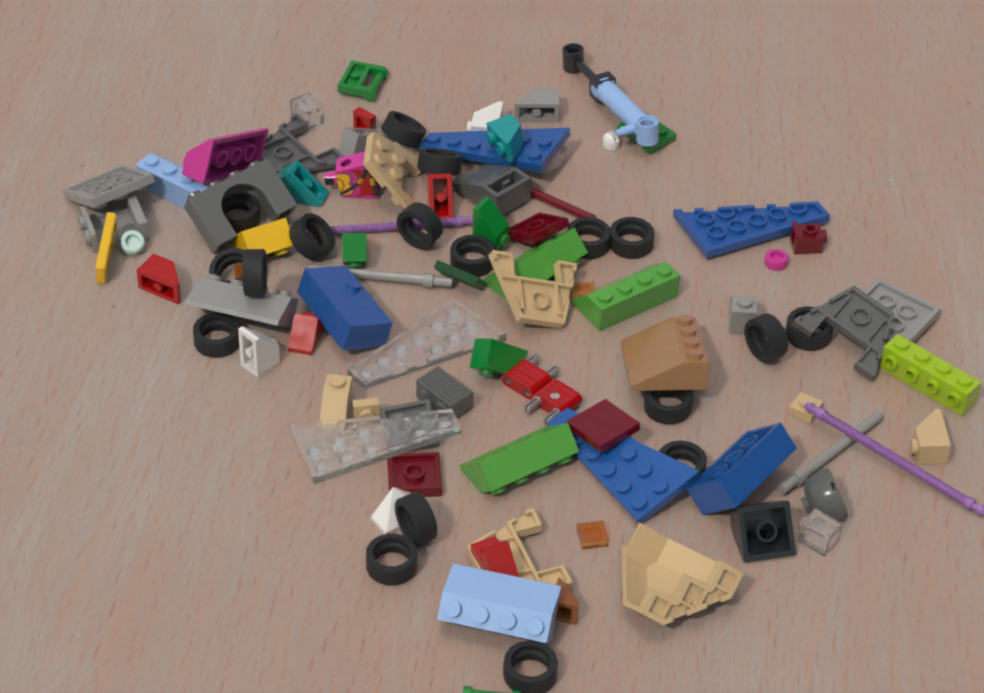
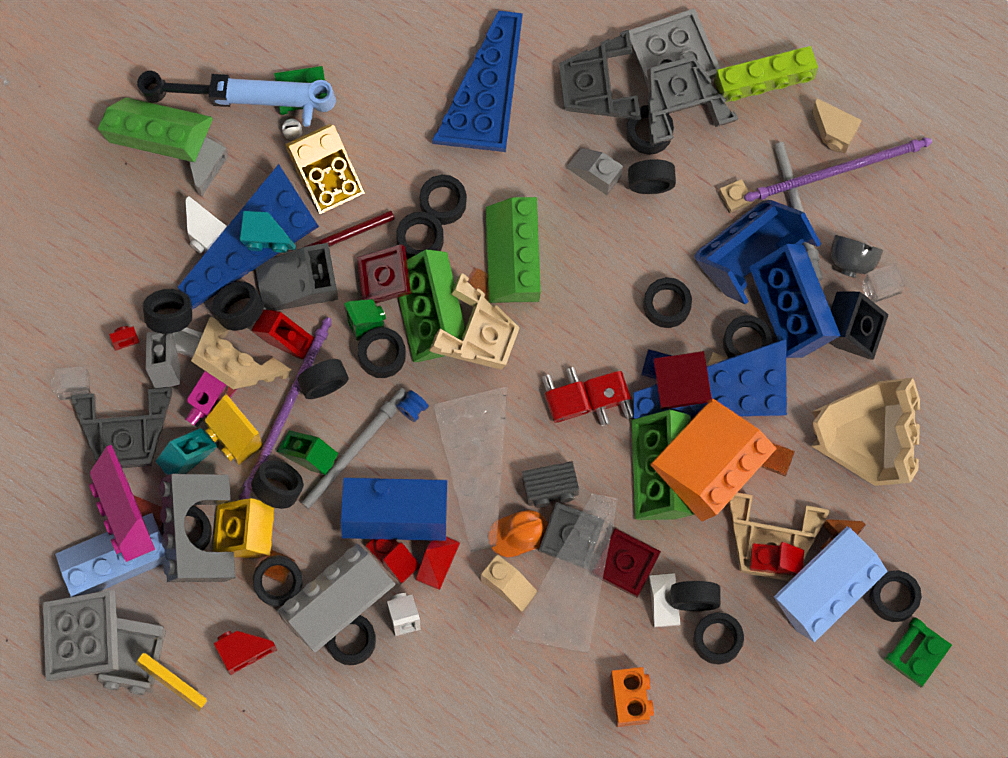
camera: 60 degrees left, 30 degrees up
(132, 242) = (169, 651): light aqua tile -> none
(254, 272) = (337, 574): black tyre -> none
(292, 522) = (624, 697): none -> orange brick
(323, 357) = (437, 562): none -> red slope
(338, 198) = (232, 431): none -> yellow slope
(356, 77) = (45, 306): green plate -> none
(365, 407) = (534, 562): tan plate -> none
(389, 393) = (519, 533): none -> orange piece
(442, 288) = (412, 406): none -> blue wheel
(459, 275) = (403, 380): dark green tile -> none
(495, 357) = (535, 413): green slope -> none
(539, 65) = (155, 128): none -> bright green slope
(547, 473) = (712, 459): none -> orange slope
(596, 163) = (325, 168): none -> yellow slope
(667, 356) = (626, 274): medium nougat slope -> none
(732, 419) = (749, 240): none -> blue windscreen
(776, 259) = (543, 95): dark pink tile -> none
(807, 238) = (534, 58): dark red brick -> none
(814, 272) = (588, 85): none -> dark grey wing

